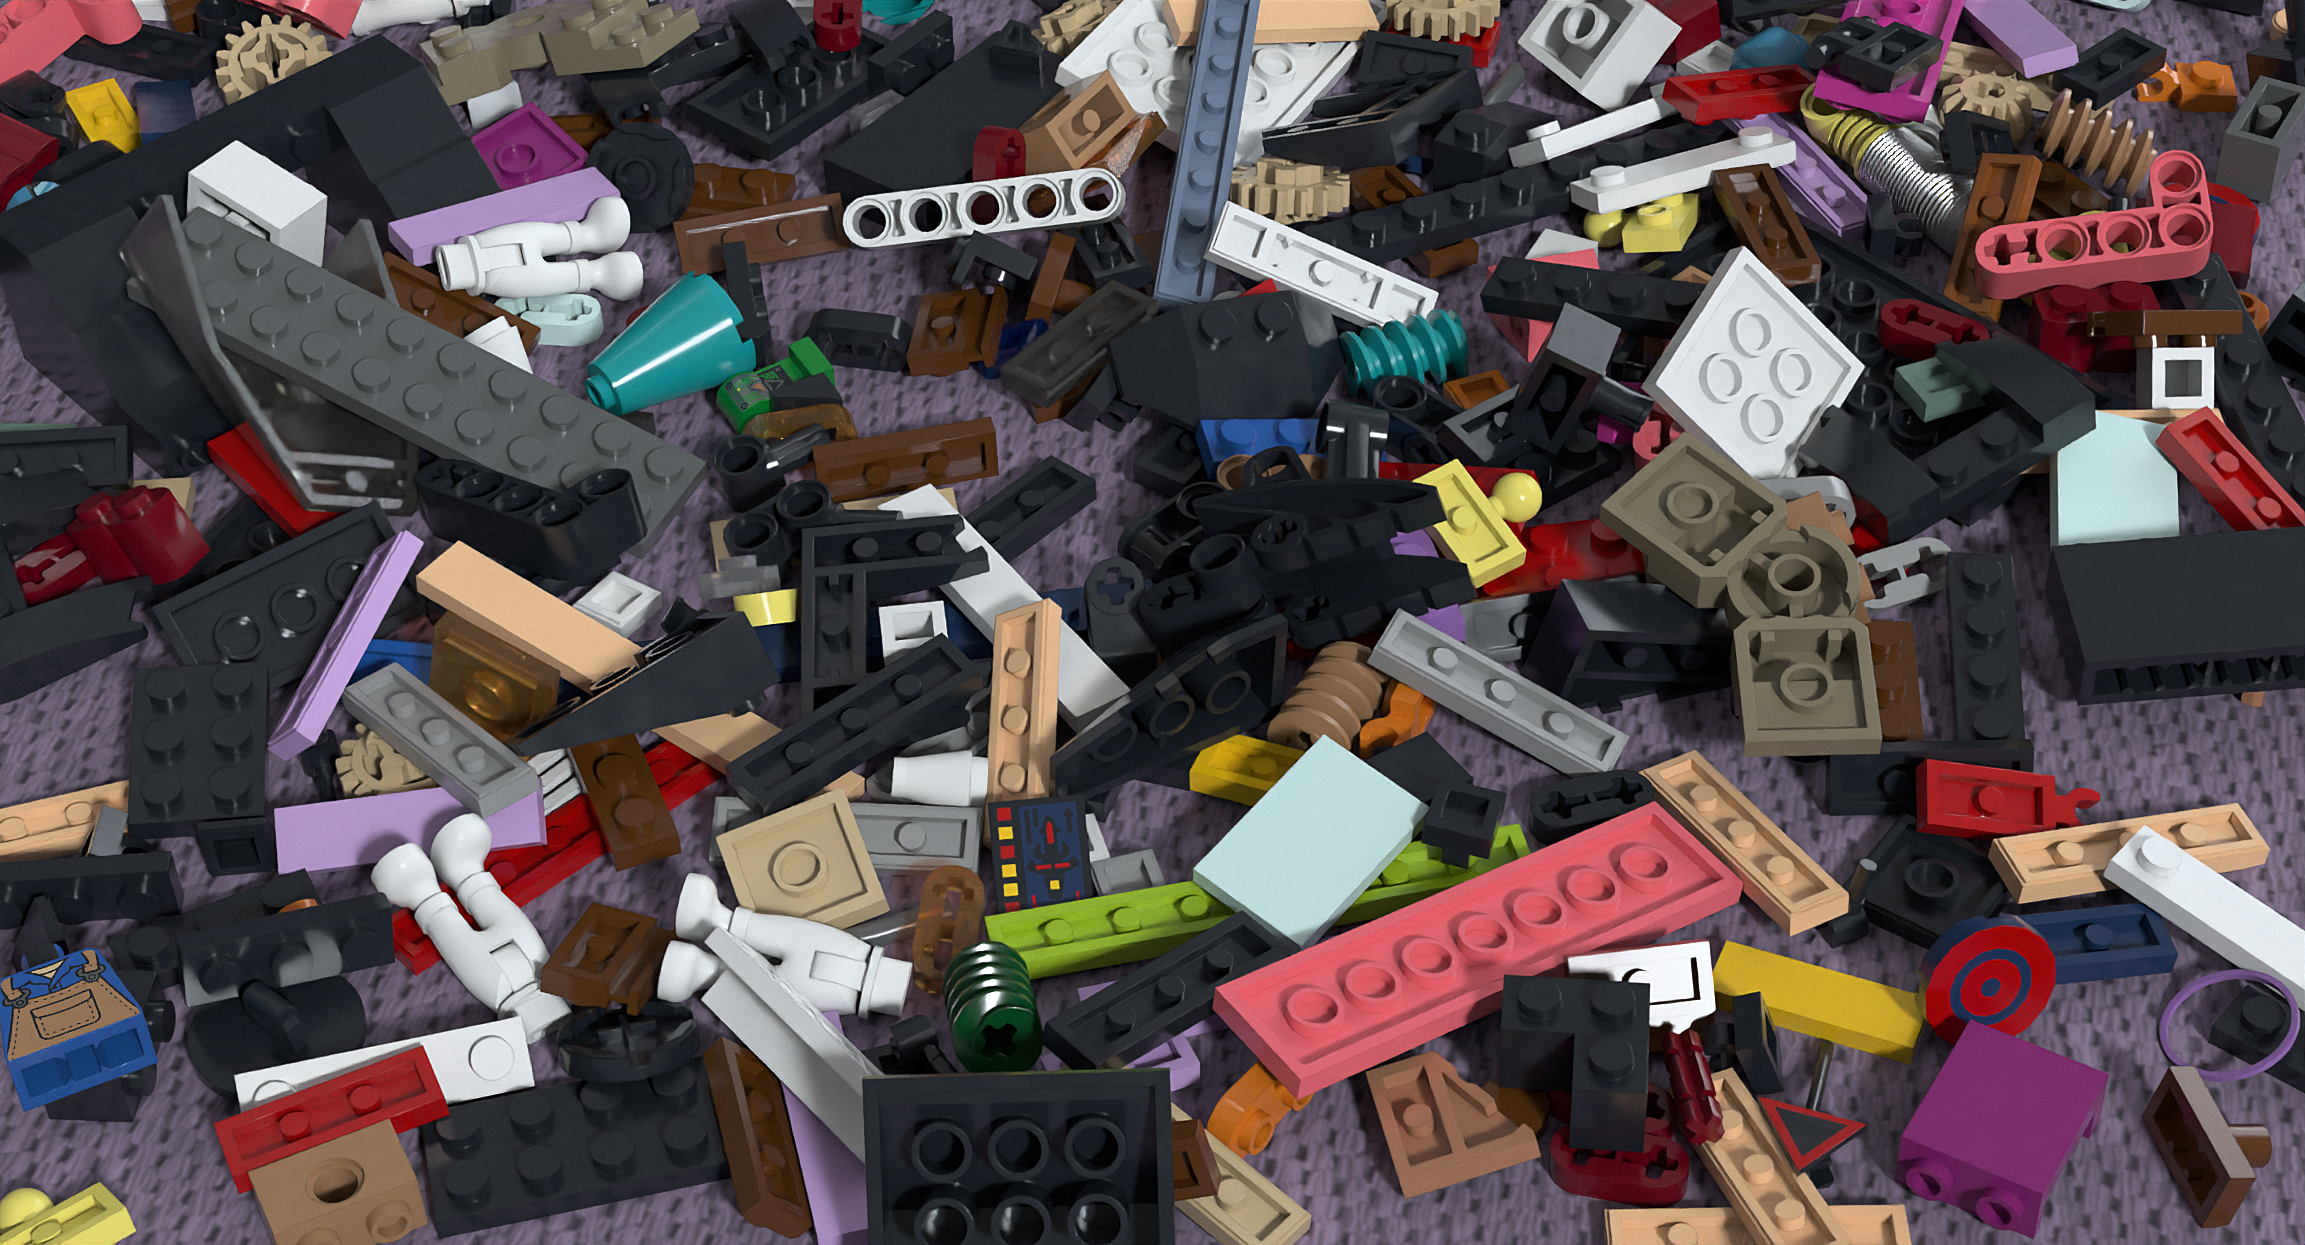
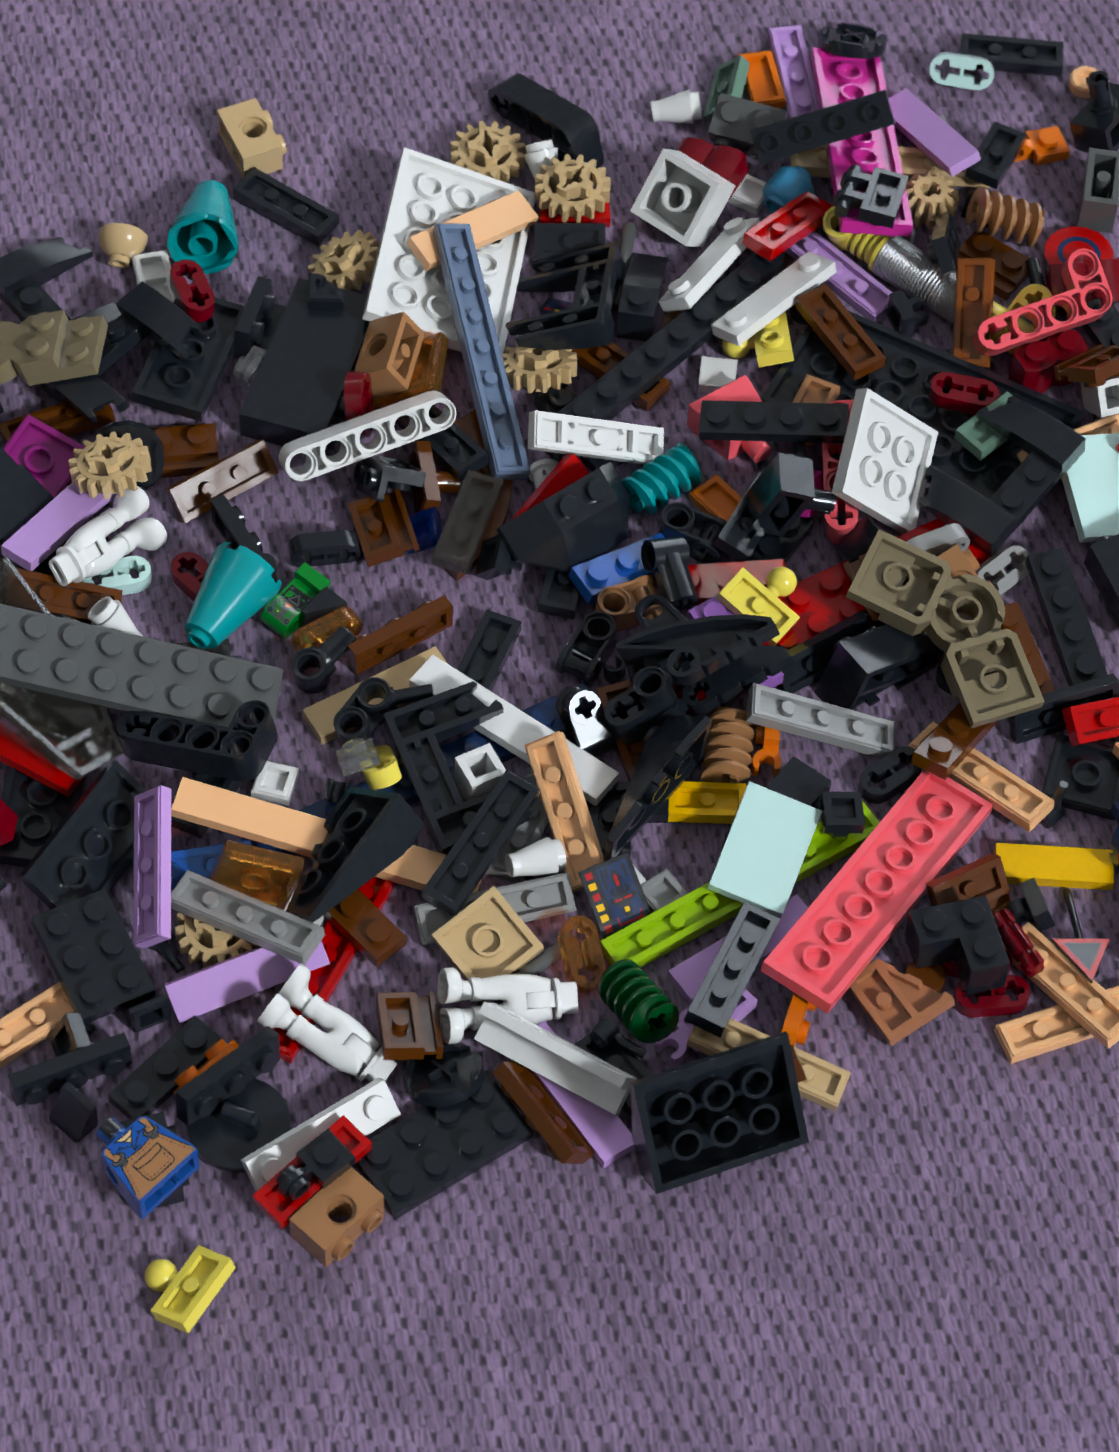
camera: 25 degrees left, 15 degrees up
(344, 1099) = (322, 1160): none -> black plate
(591, 161) = (110, 465): none -> tan gear
(1708, 775) = (949, 744): none -> reddish brown plate

